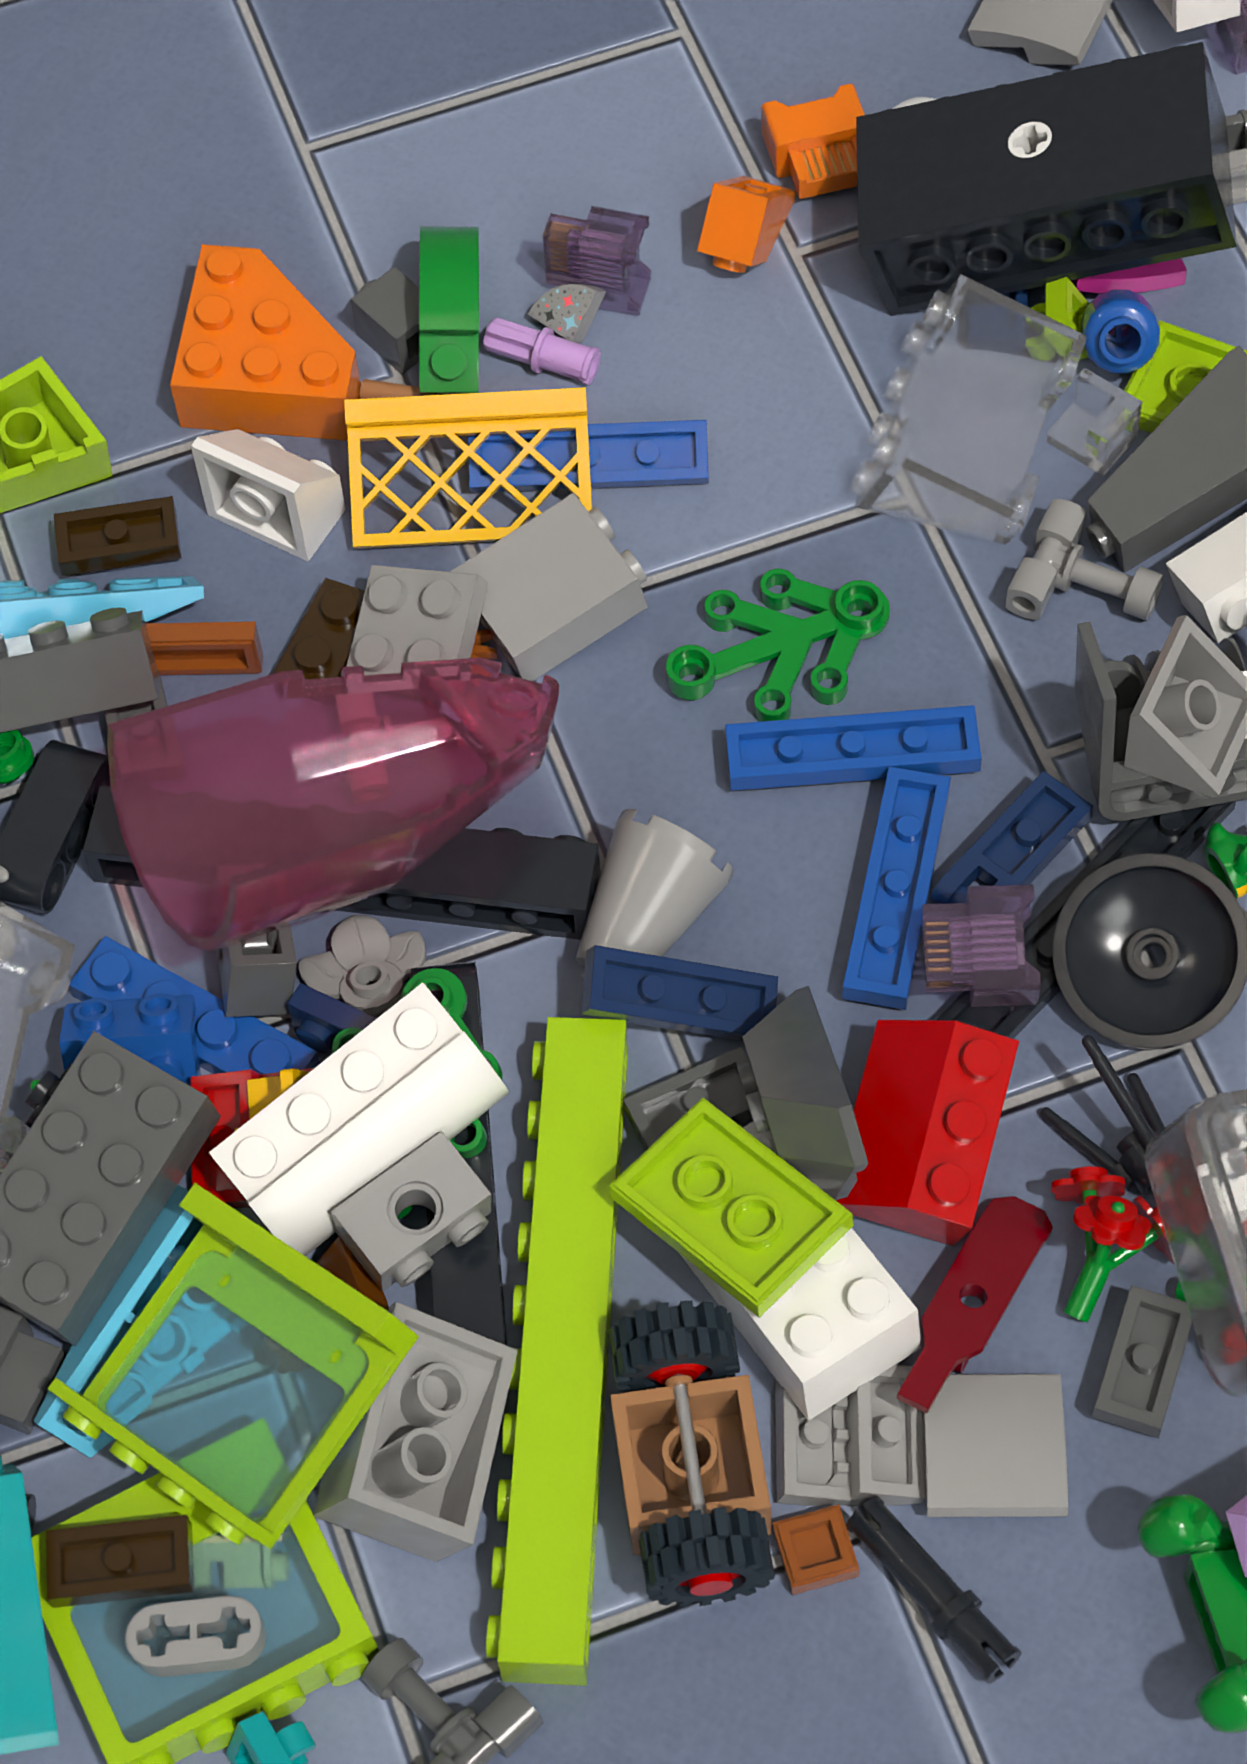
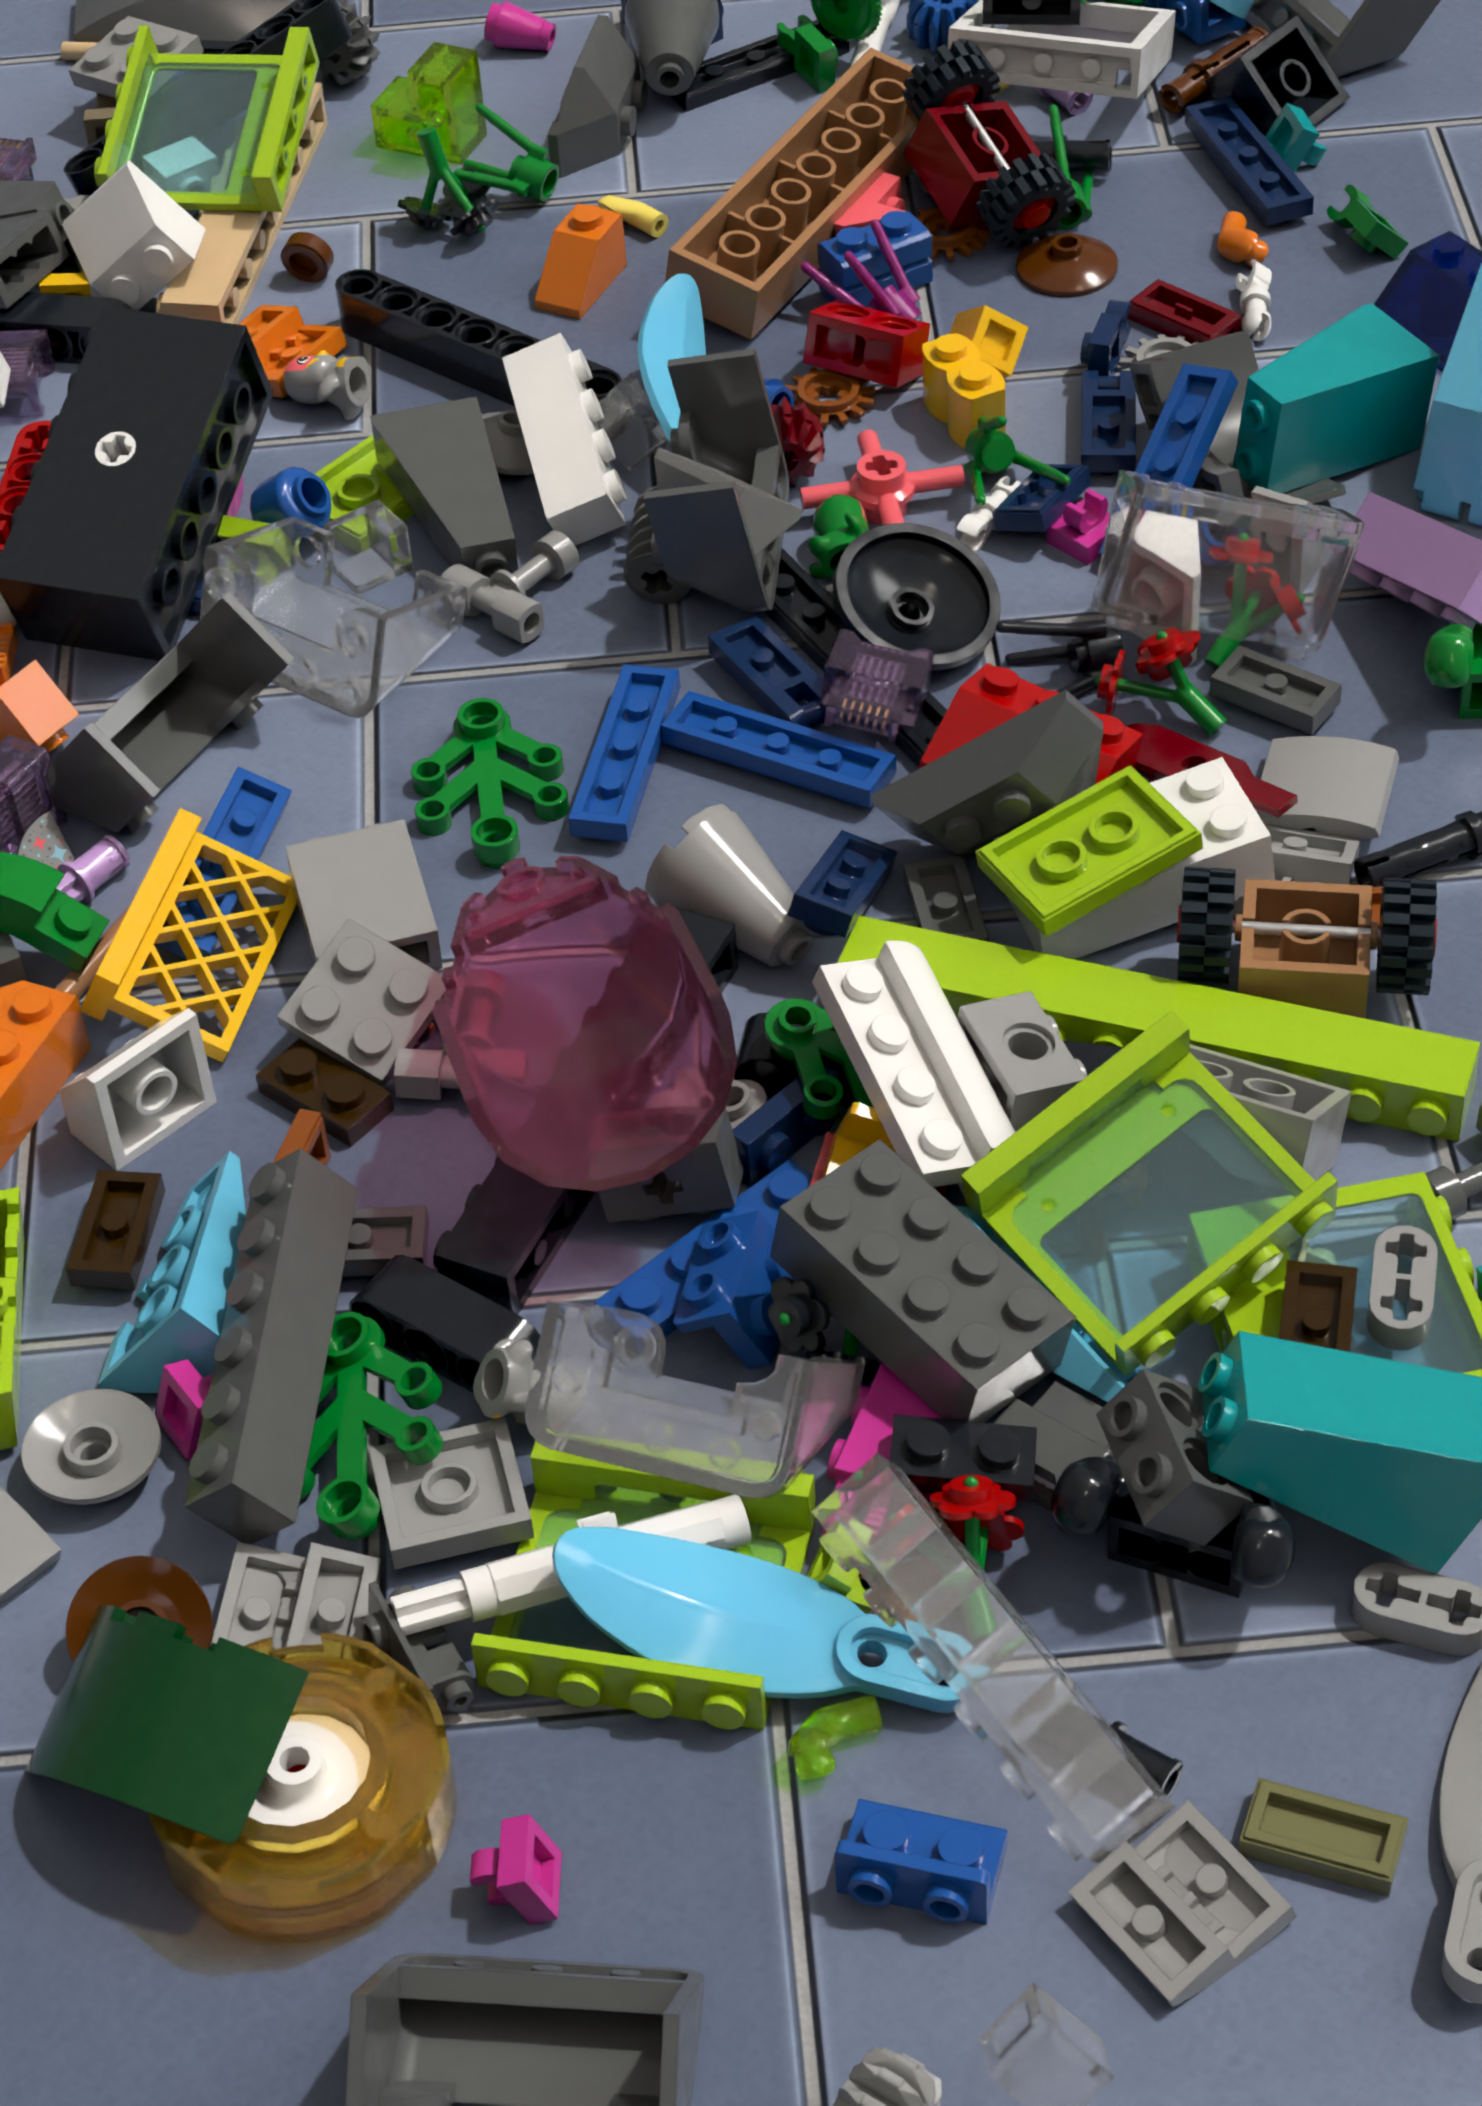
camera: 75 degrees left, 15 degrees down
(736, 333) = (167, 719): none -> dark grey windscreen

